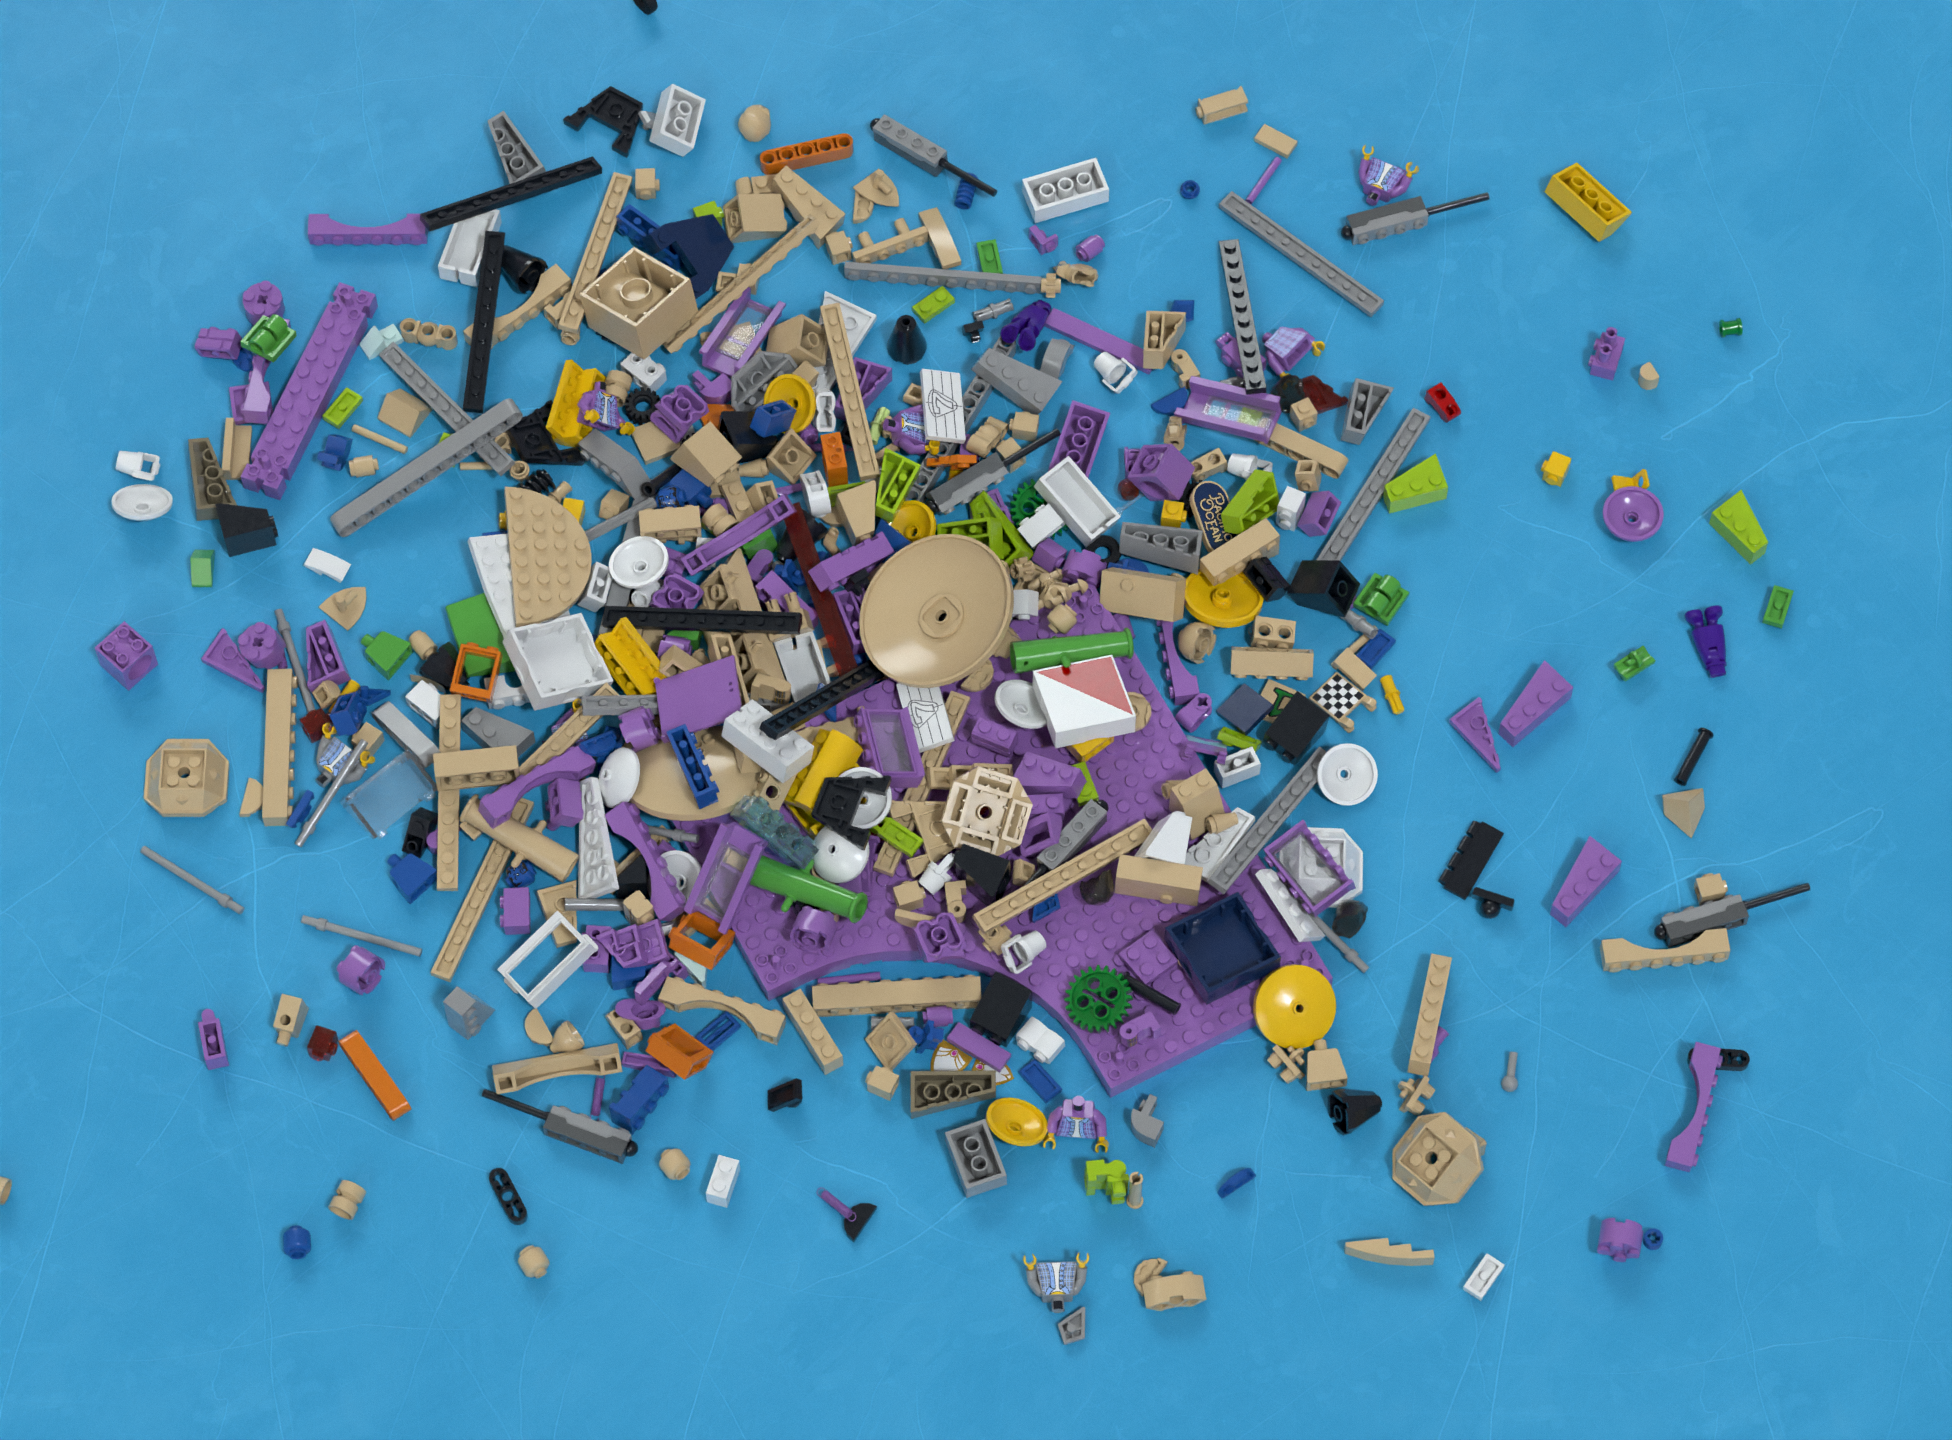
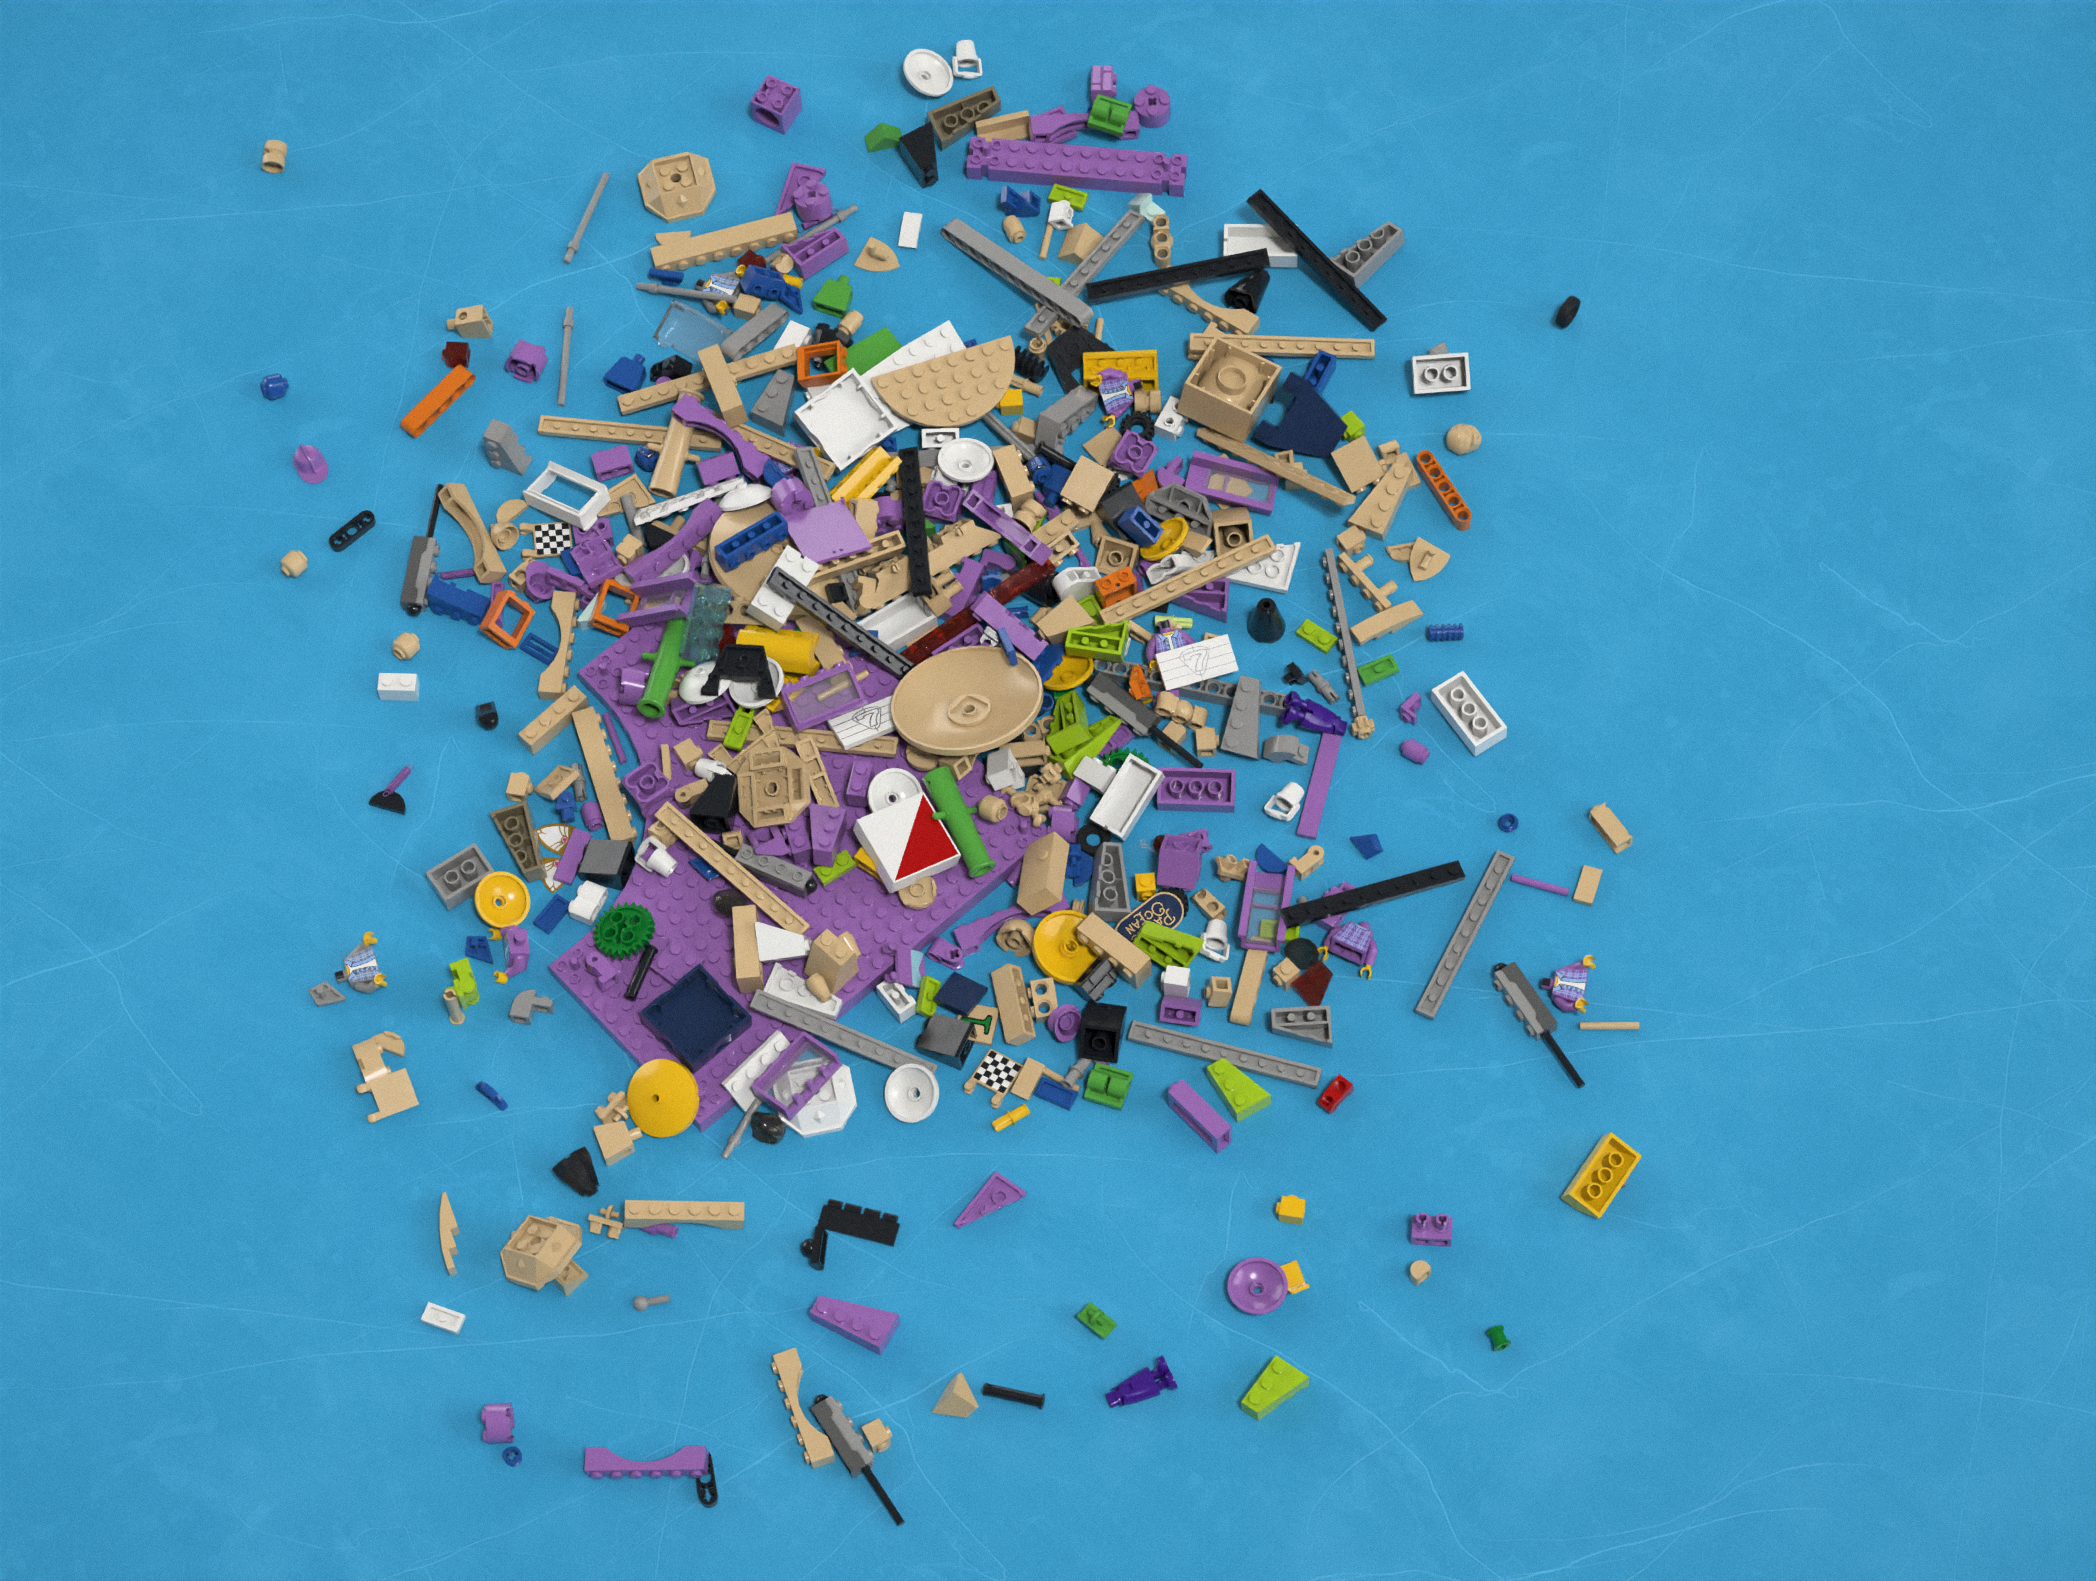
camera: 80 degrees right, 0 degrees up
(213, 1040) = (438, 272): medium lavender brick -> none
(327, 231) = (1244, 130): medium lavender arch -> none
(347, 1199) = (319, 411): tan wheel -> none
(364, 416) = (1061, 215): none -> white brick
(406, 1226) = (310, 464): none -> medium lavender piece
(586, 995) = (548, 539): none -> flag
(614, 111) = (1441, 325): black wing -> none
(646, 183) = (1370, 368): tan brick -> none
(883, 561) = (1007, 646): none -> blue tile
(919, 150) = (1473, 582): piece -> none
(1061, 1161) = (478, 948): none -> blue piece
(1077, 273) = (1381, 746): tan animal -> none
(1161, 337) = (1328, 829): tan wedge -> none
(1213, 1279) = (392, 1094): none -> tan flag
(1305, 618) = (1065, 1022): none -> medium lavender piece
(1428, 160) = (1609, 1025): none -> tan piece
(1440, 521) = (1199, 1116): none -> medium lavender piece
(1537, 702) = (1030, 1241): medium lavender wedge -> none
(1778, 606) = (1197, 1441): bright green plate -> none

